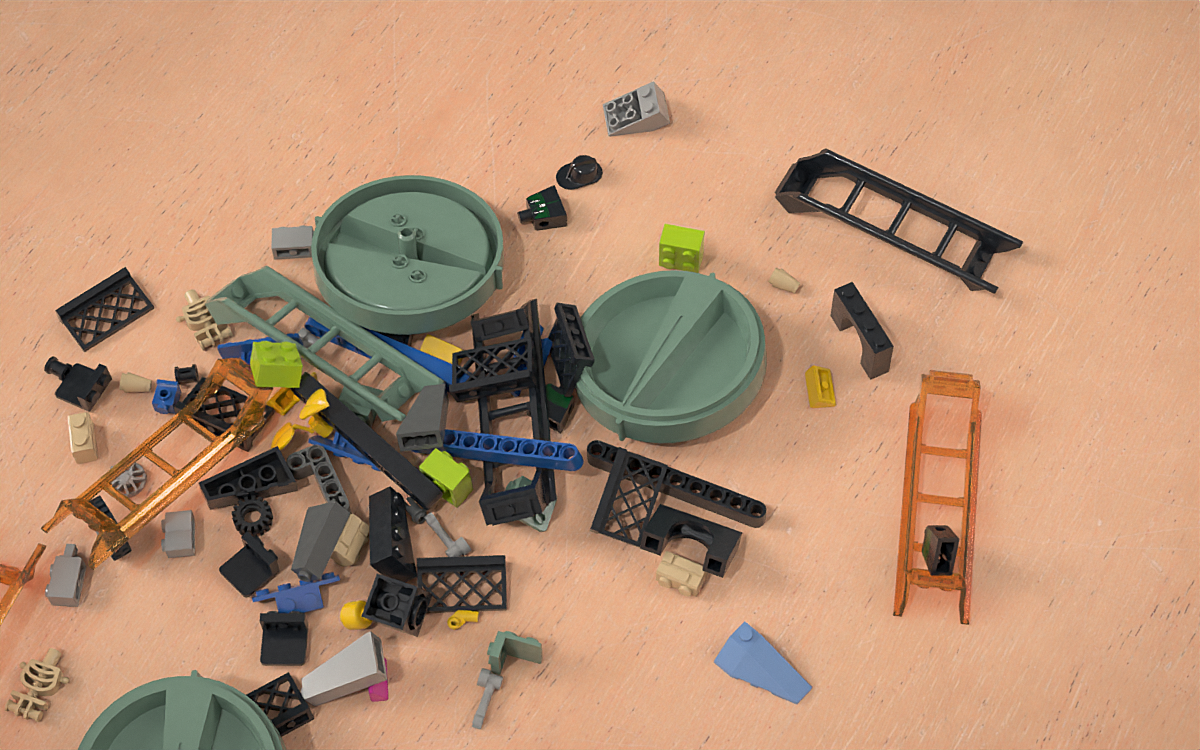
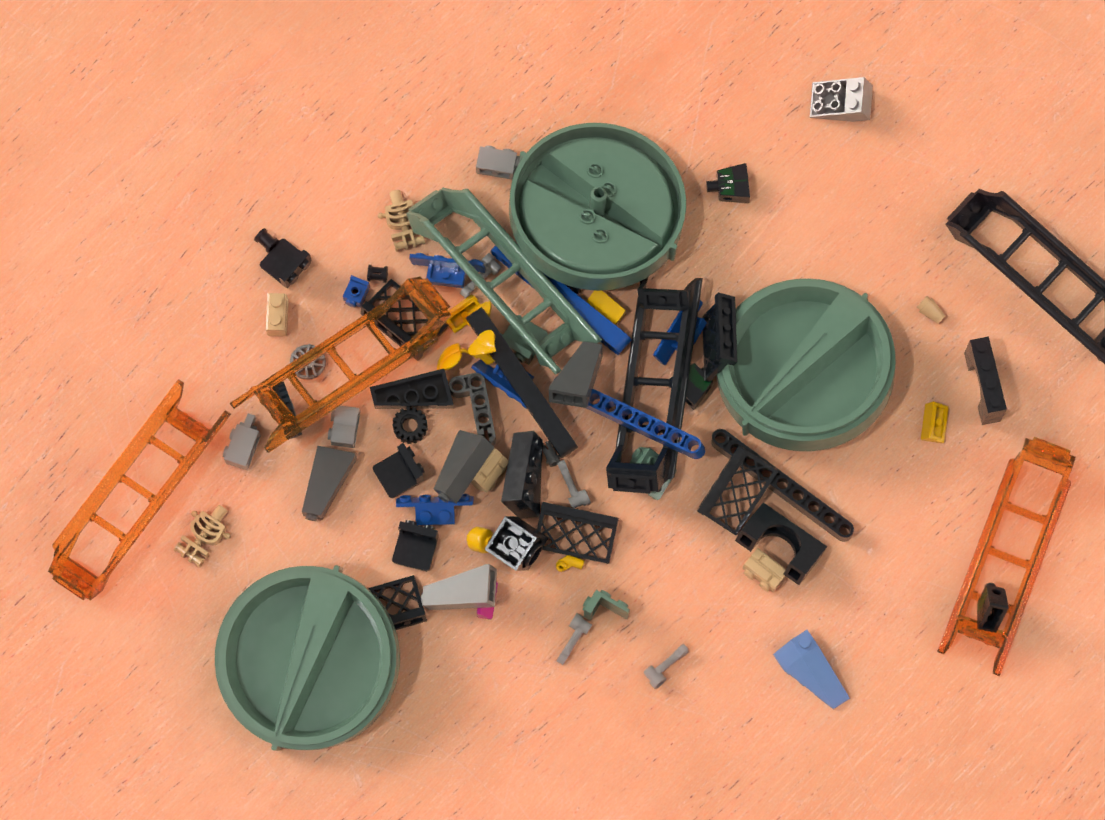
camera: 15 degrees right, 15 degrees up
(93, 297) = (308, 176): black fence -> none
(134, 383) = (331, 271): tan cone -> none
(168, 593) = (326, 478): none -> dark grey slope
(276, 364) = (457, 298): lime brick -> none
(448, 476) = (584, 432): lime brick -> none
(493, 383) = (649, 356): black fence -> none
(579, 173) = (772, 151): black piece -> none
(588, 714) = (655, 674): none -> light grey brick
(681, 248) = (845, 257): lime brick -> none

